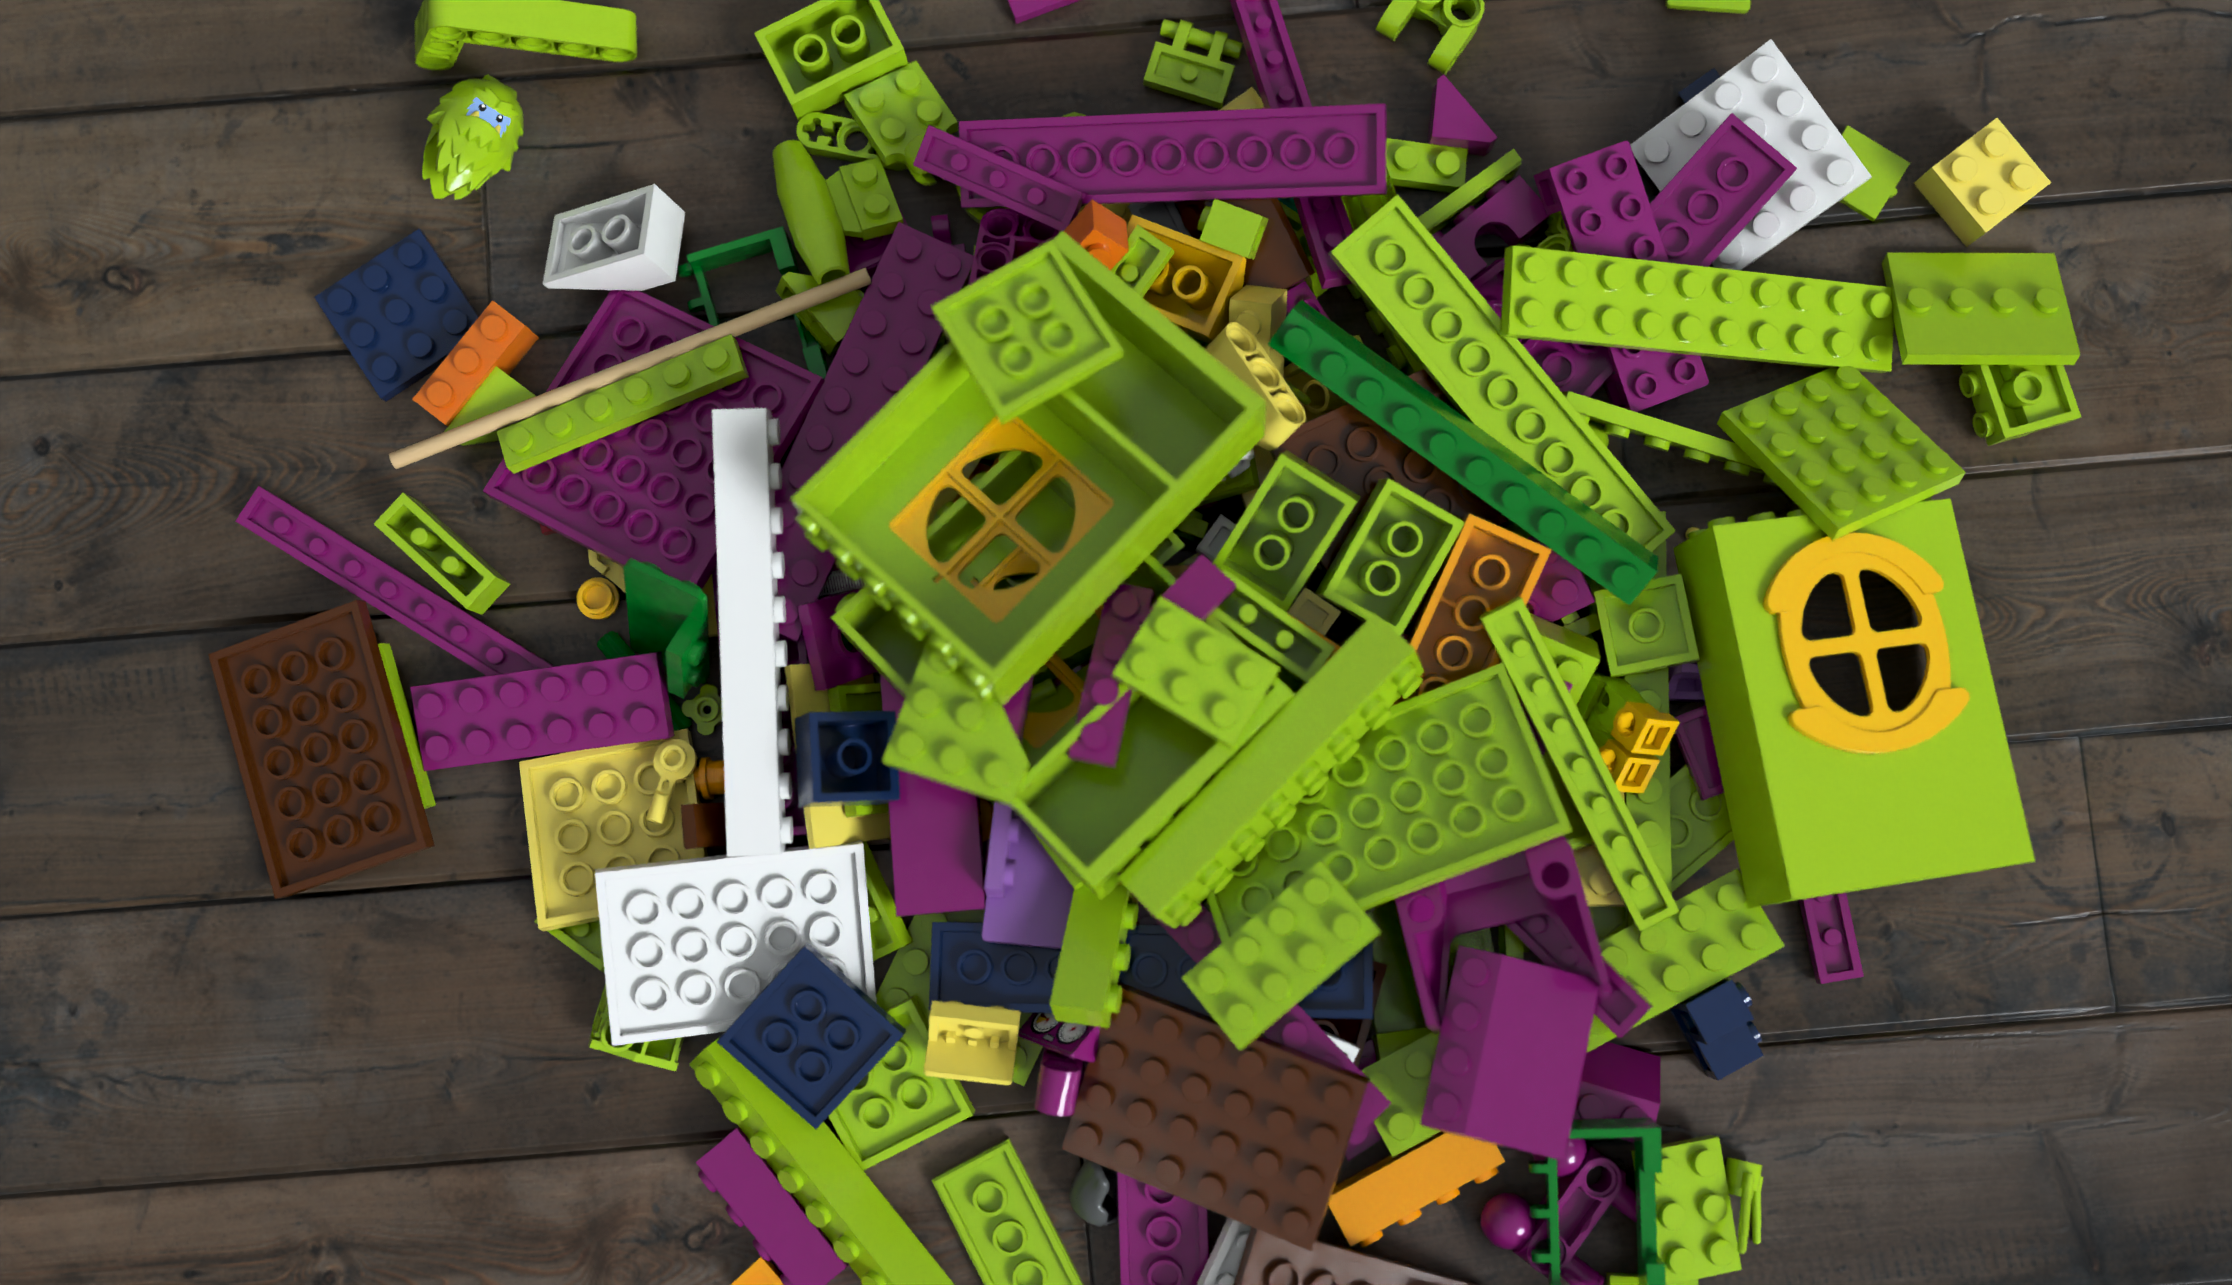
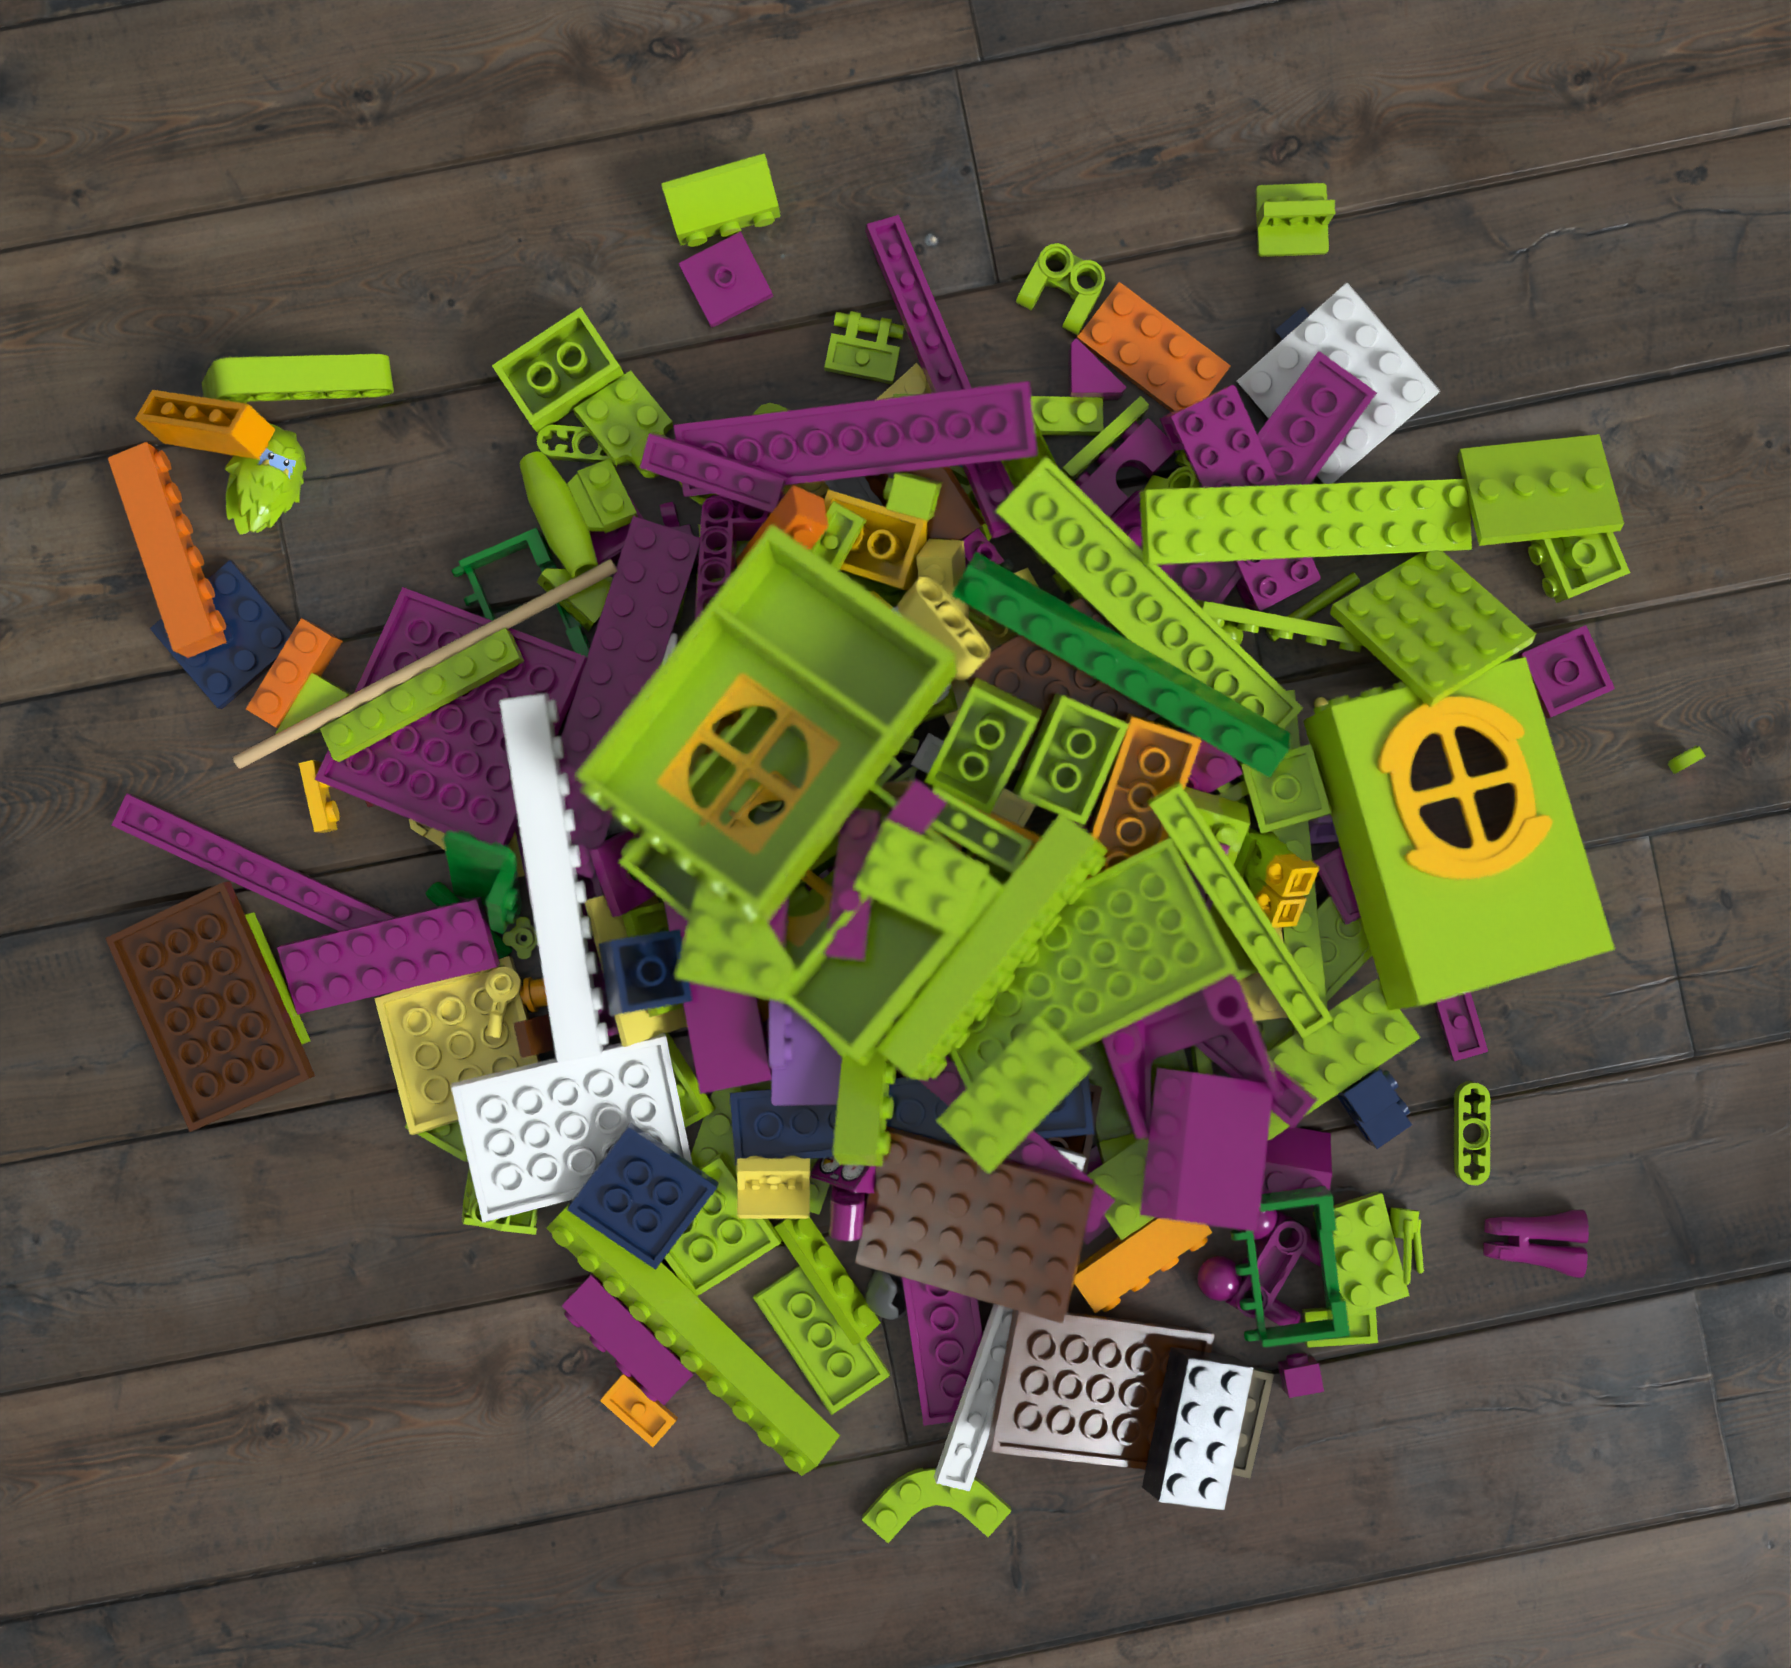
camera: 10 degrees left, 5 degrees up
(348, 207) = (168, 550): none -> orange brick
(411, 63) = (205, 424): none -> light orange brick
(442, 554) = (287, 834): lime brick -> none
(487, 530) = (322, 810): none -> yellow plate
(598, 598) = (421, 855): yellow plate -> none
(616, 243) = (398, 556): white slope -> none
(1026, 1164) = (828, 1277): none -> lime plate
(1027, 331) = (753, 616): lime plate -> none
(1530, 100) = (1152, 351): none -> orange plate
(1707, 412) = (1322, 600): none -> lime bar
(1820, 1106) = (1480, 1107): none -> lime beam
(1884, 168) = (1448, 376): lime piece -> none
(1944, 1205) = (1566, 1226): none -> magenta piece
(1982, 182) = (1534, 381): light yellow brick -> none
(1998, 527) = (1567, 671): none -> magenta plate
(2132, 647) = (1686, 759): none -> lime tile

